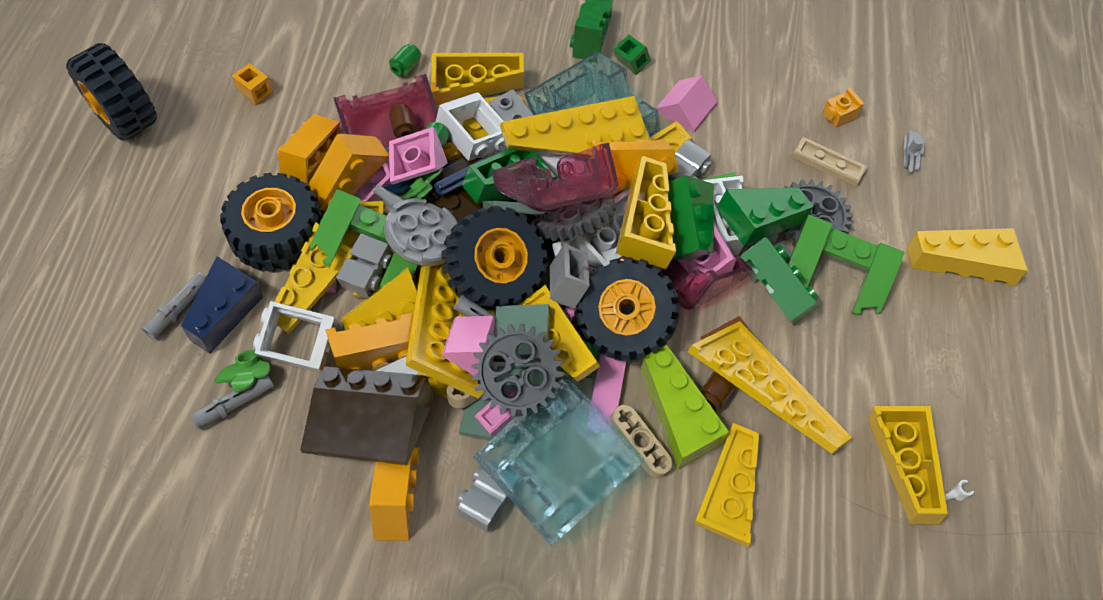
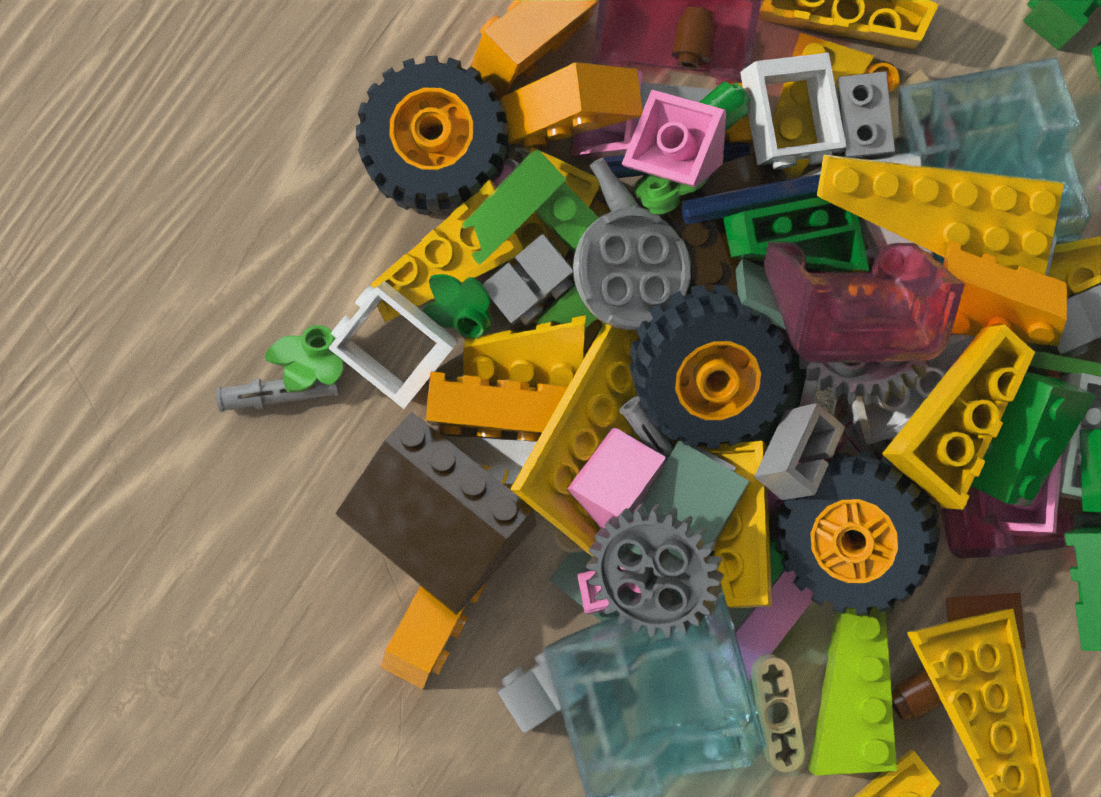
camera: 30 degrees right, 25 degrees up
(154, 327) = (240, 215): light grey pin -> none
(220, 305) = (312, 238): dark blue wedge -> none
(326, 292) = (460, 305): none -> green plate

